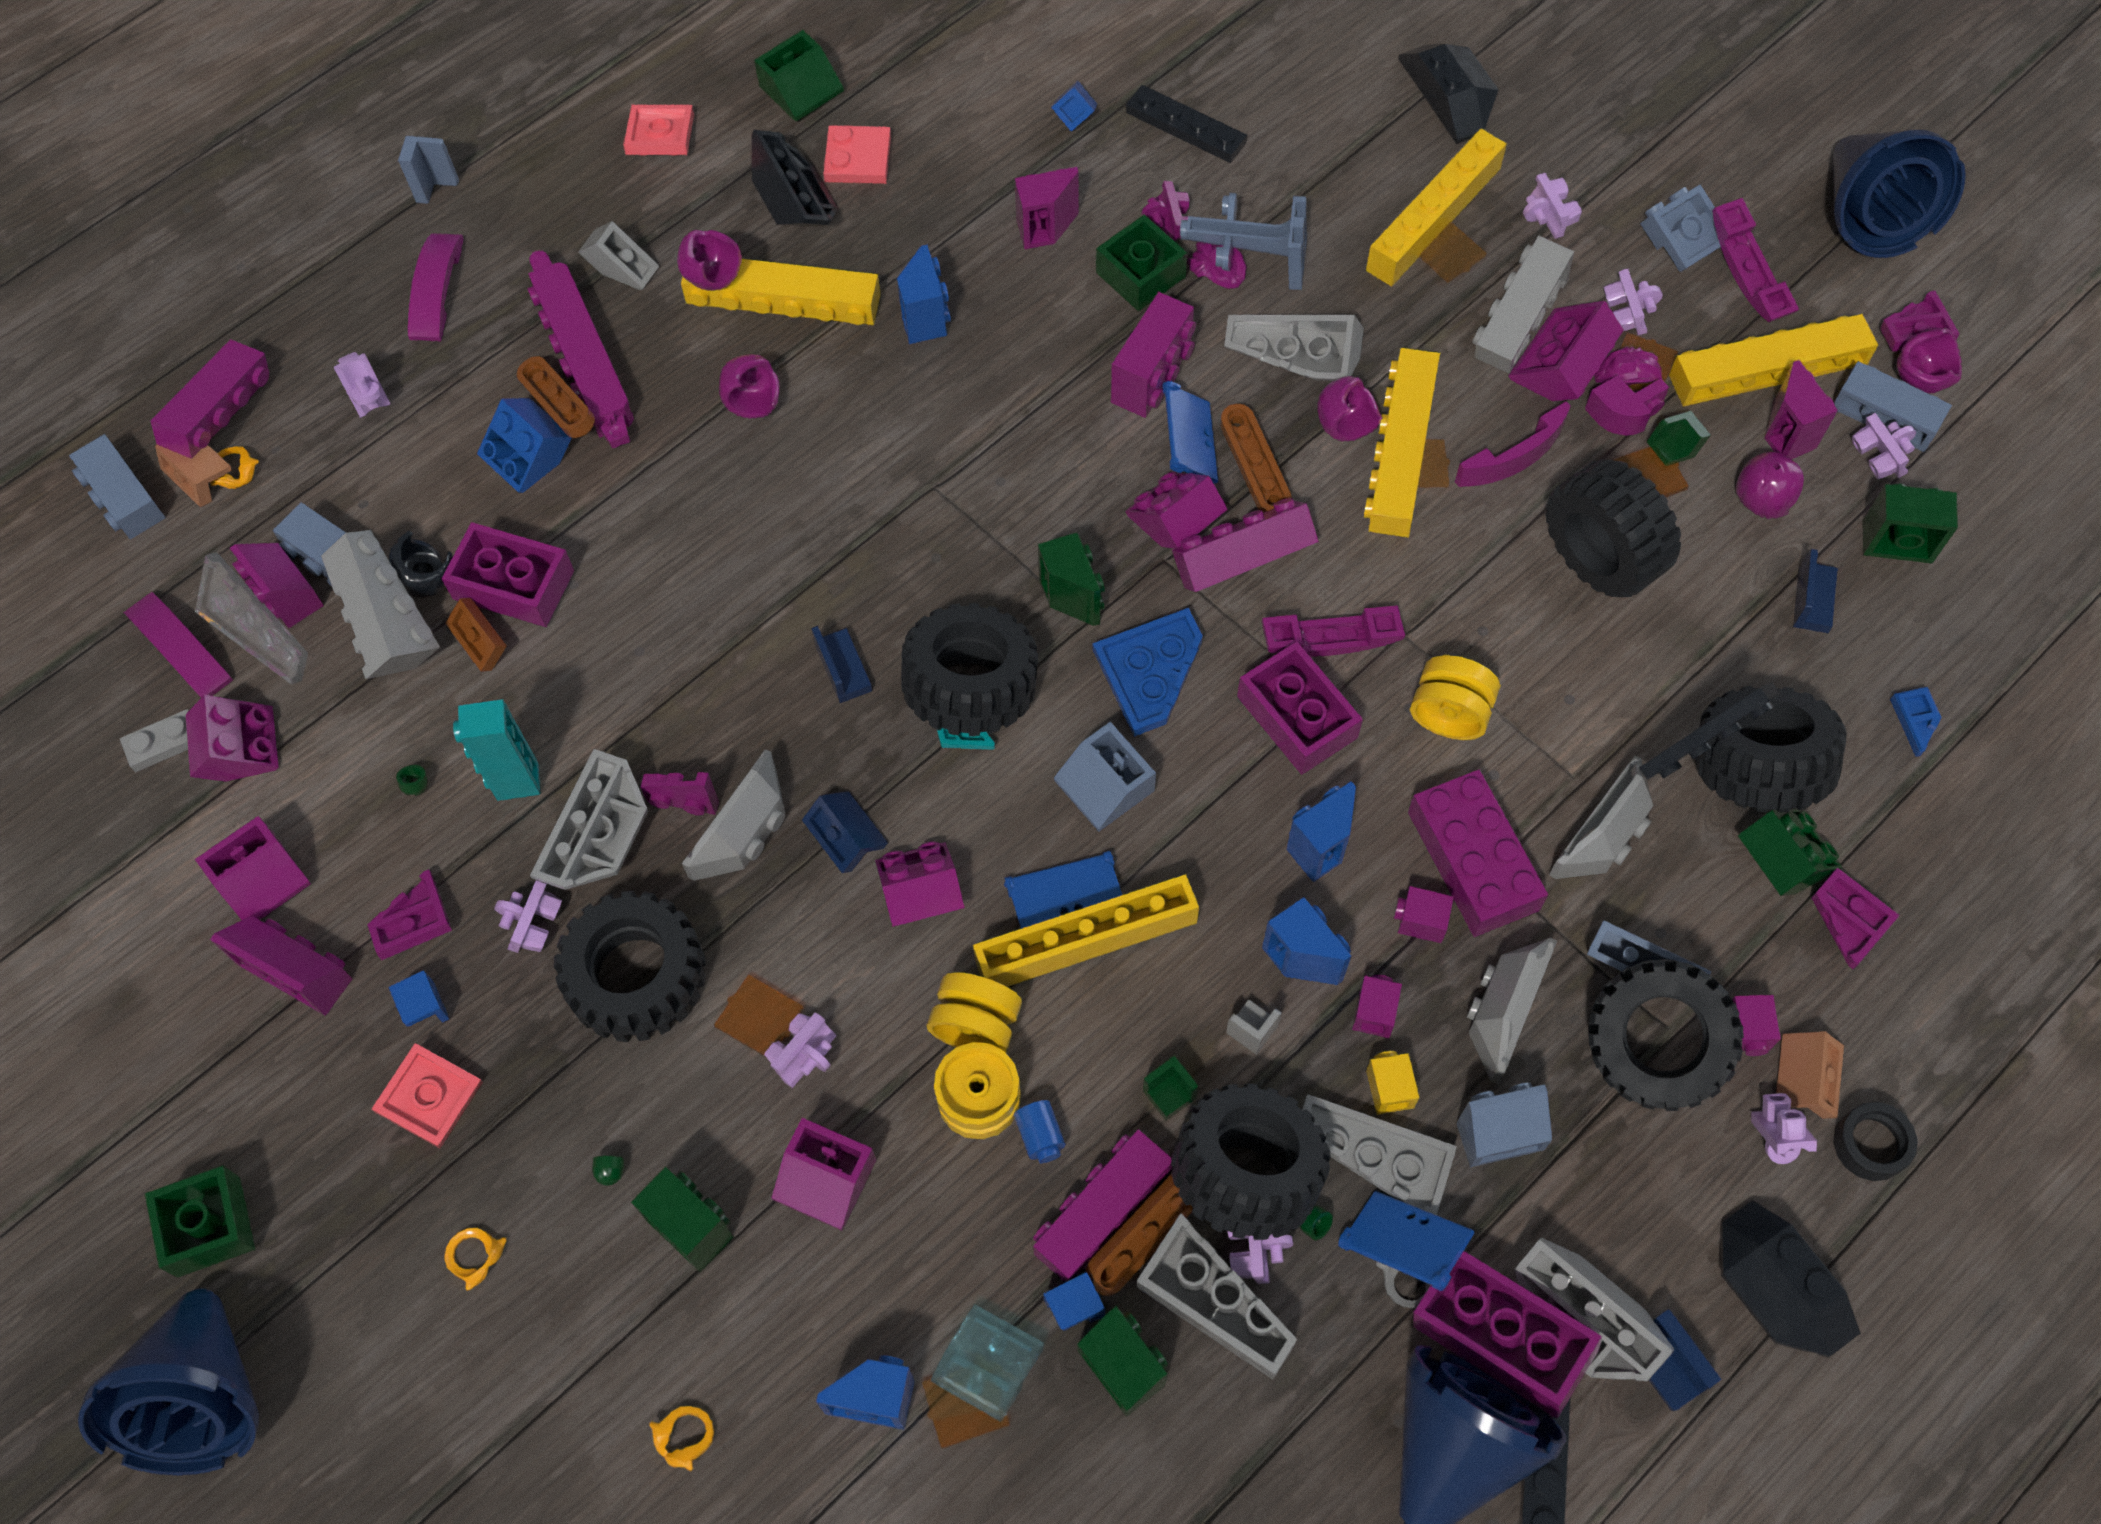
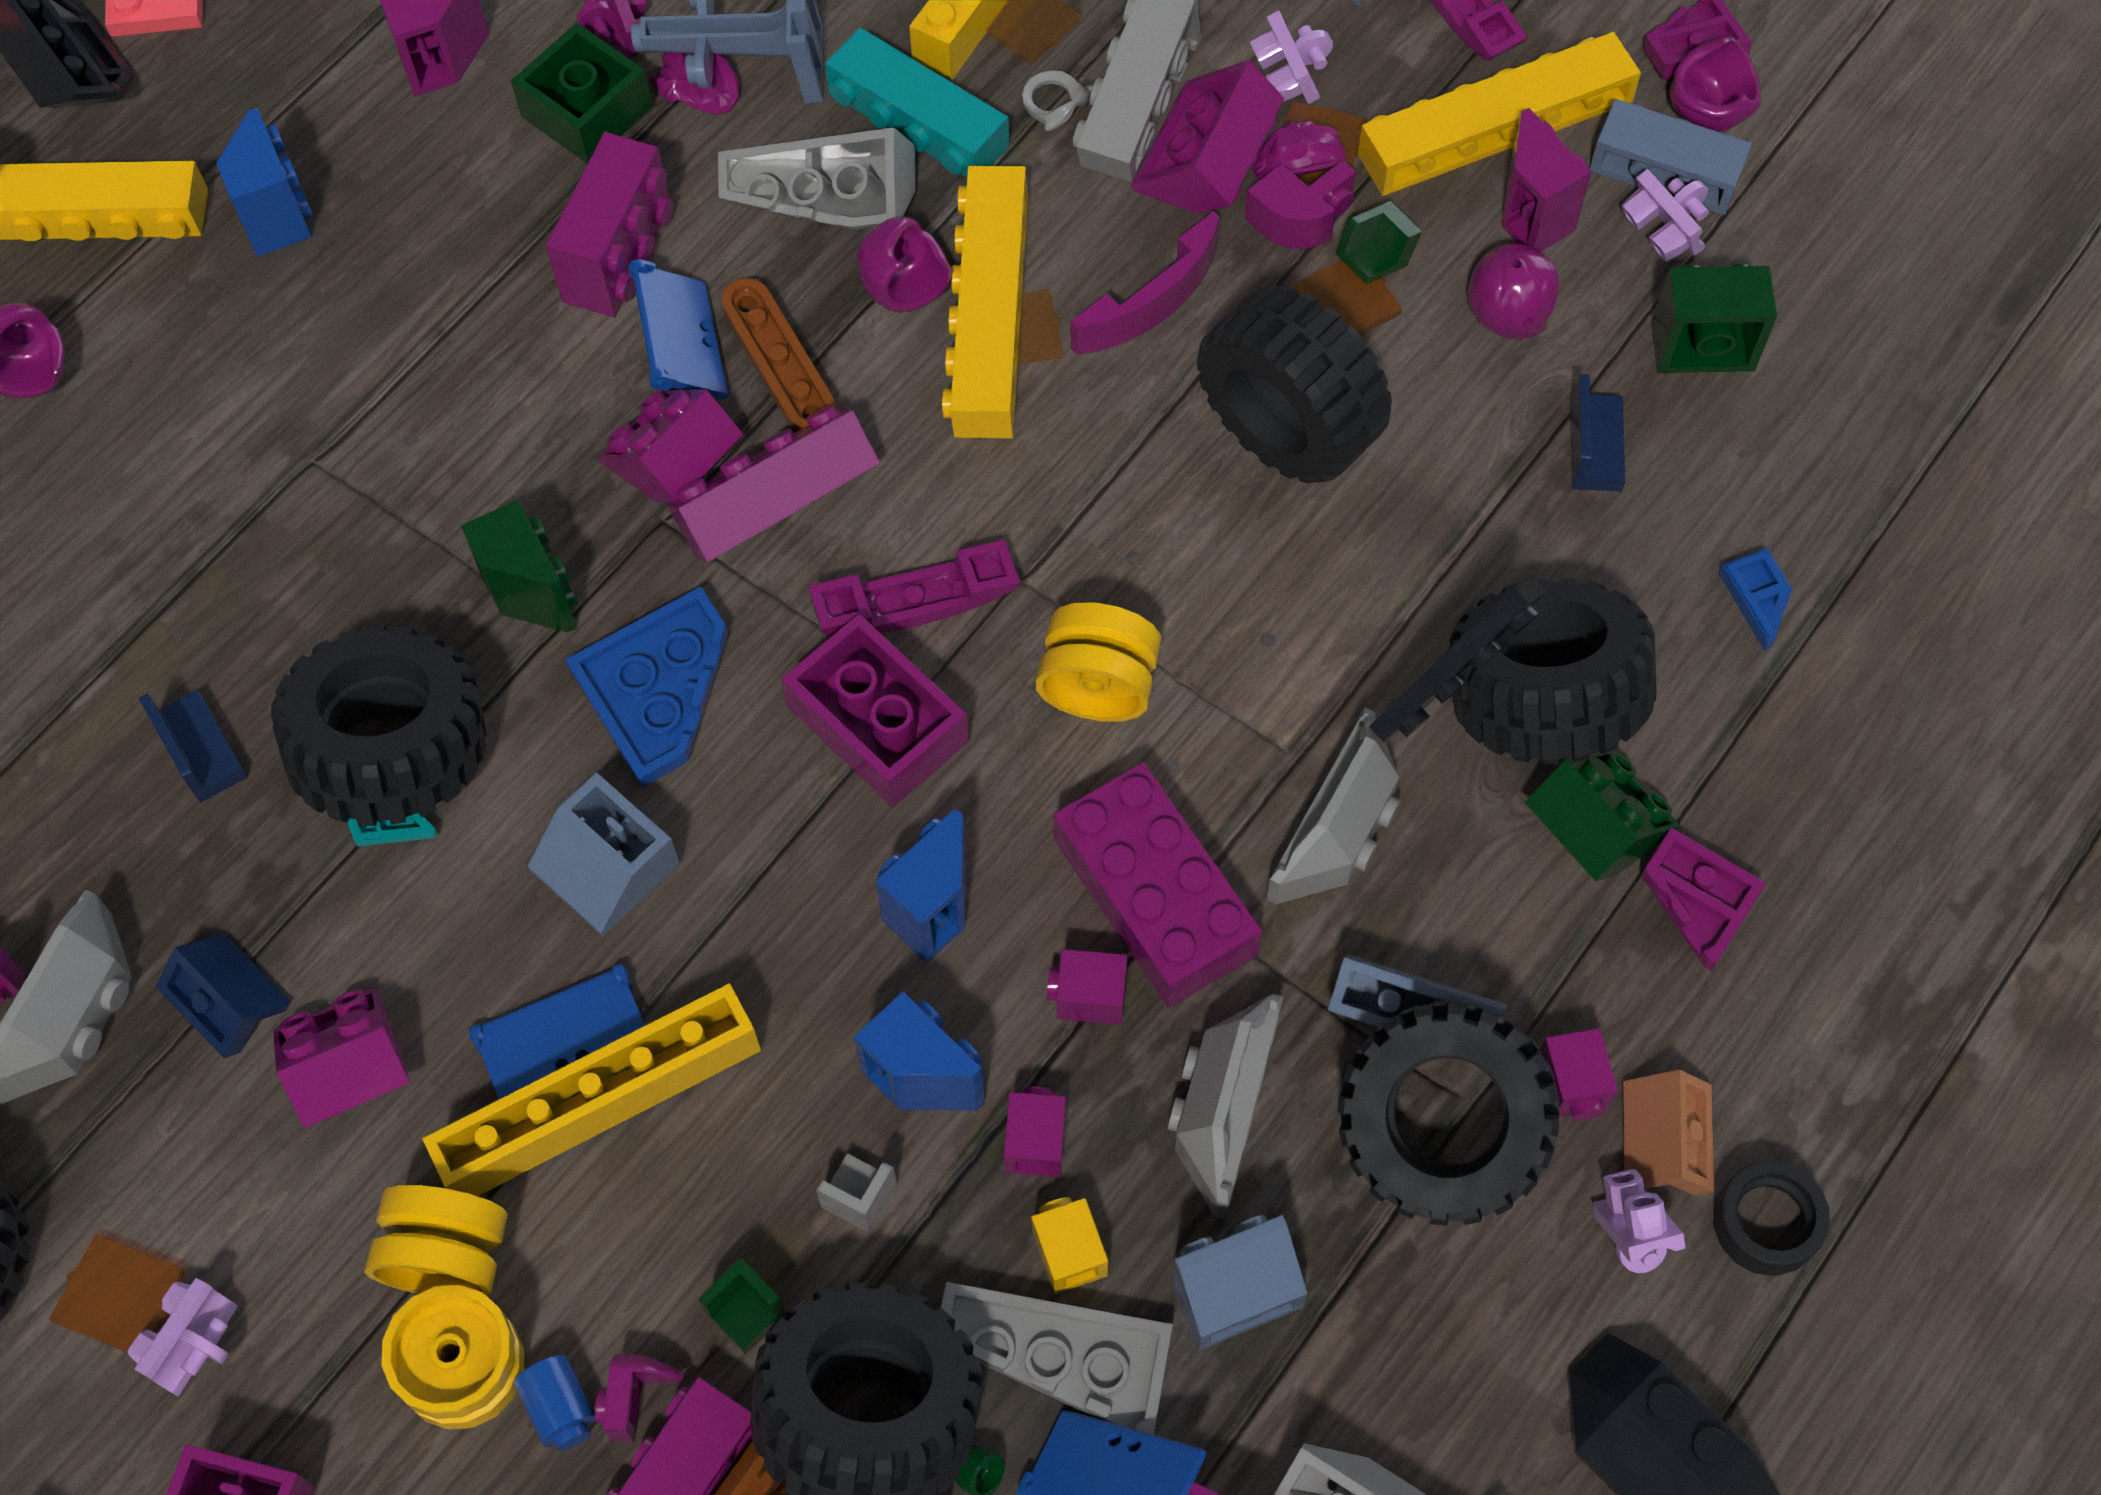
camera: 10 degrees left, 0 degrees up
(1081, 1137) = (619, 1402): none -> magenta plate
(1374, 302) = (916, 103): none -> teal brick
(1479, 308) = (1054, 119): none -> light grey piece

